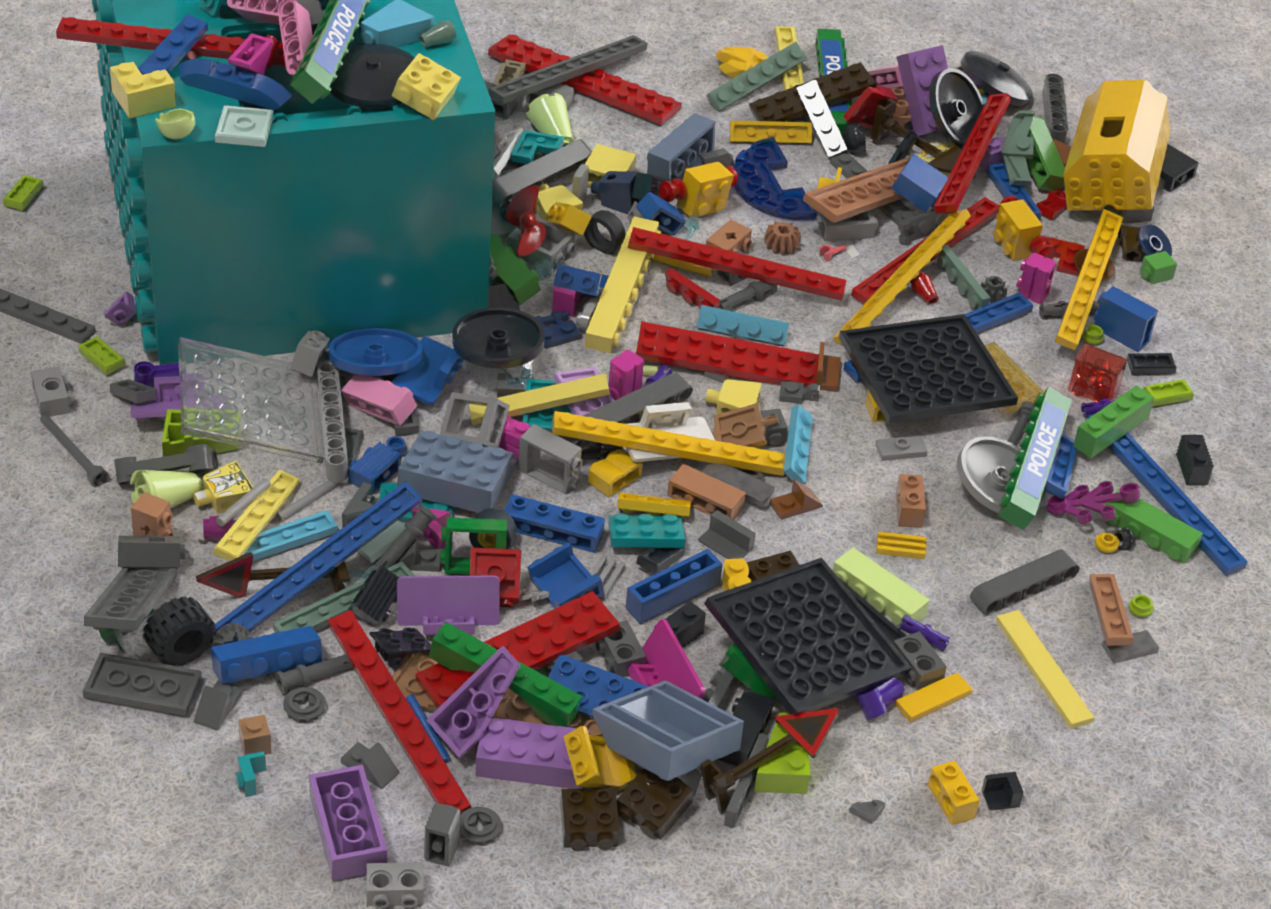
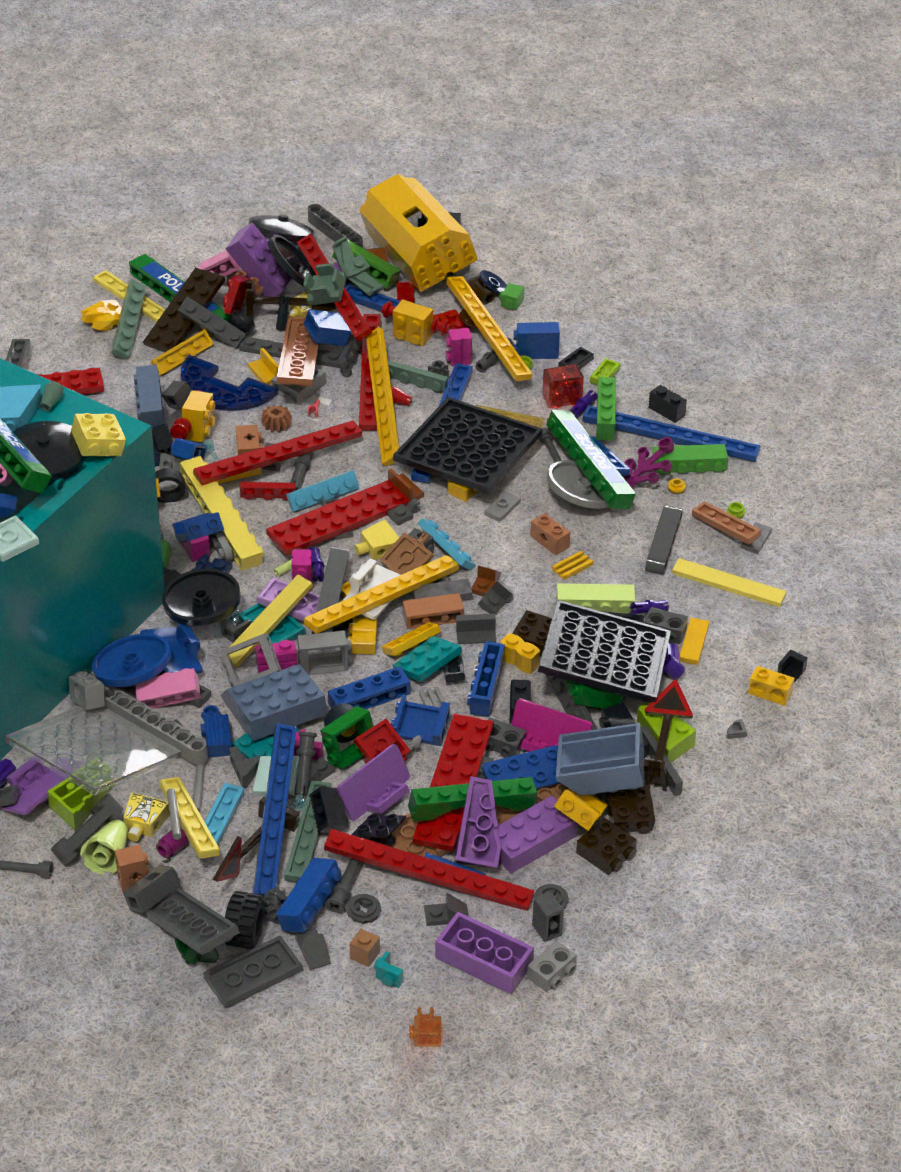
camera: 40 degrees left, 0 degrees up
(214, 850) = (426, 1029): none -> clear orange brick
(784, 522) = (495, 597): none -> dark grey slope
(961, 146) = (326, 286): none -> sand green panel
(1126, 537) = (681, 473): black plate -> none

